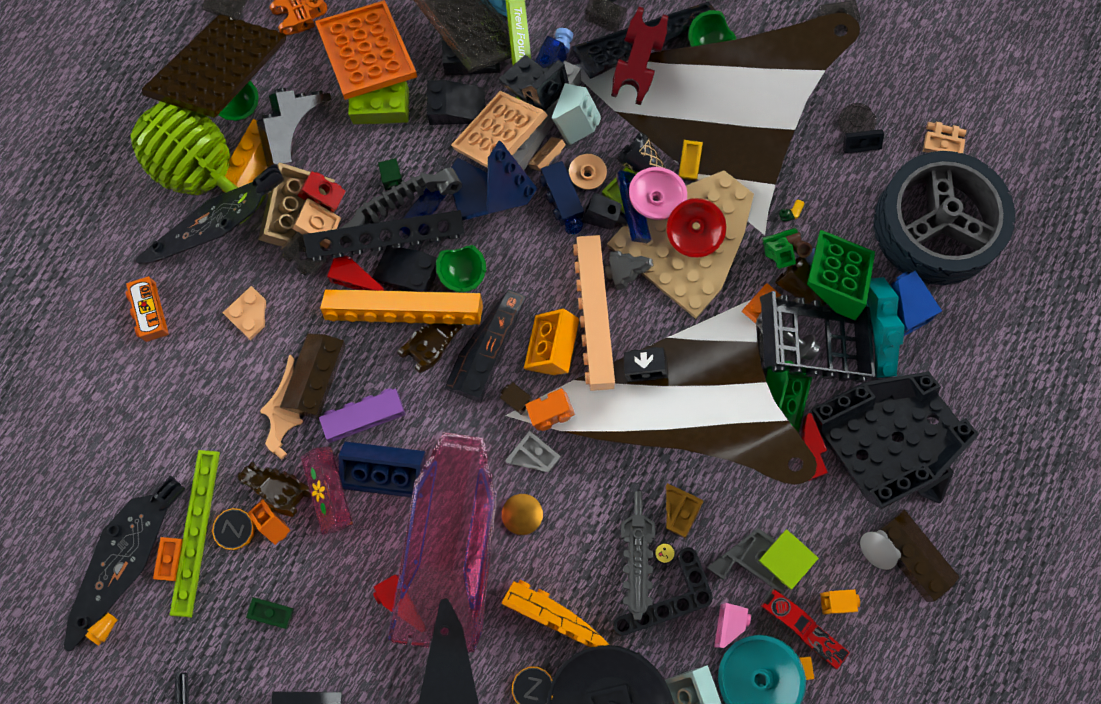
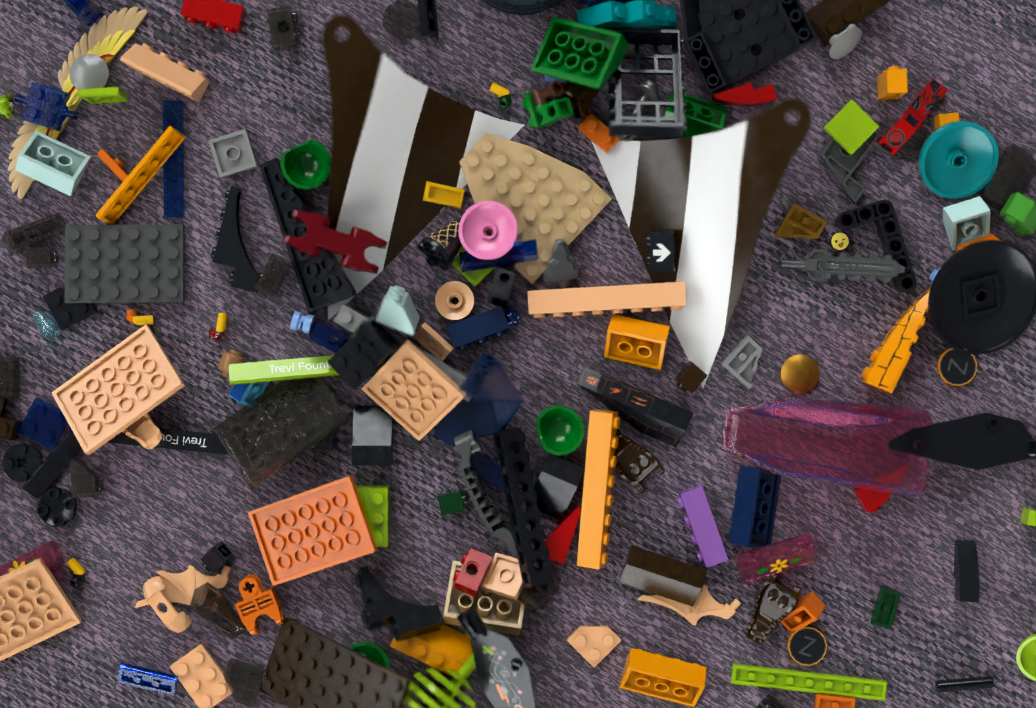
camera: 95 degrees left, 15 degrees up
(209, 379) = (663, 677): none -> light orange slope
(551, 410) = (708, 350): orange brick -> none
(698, 241) = (536, 196): red dish -> none
(731, 623) = (908, 184): bright pink slope -> none

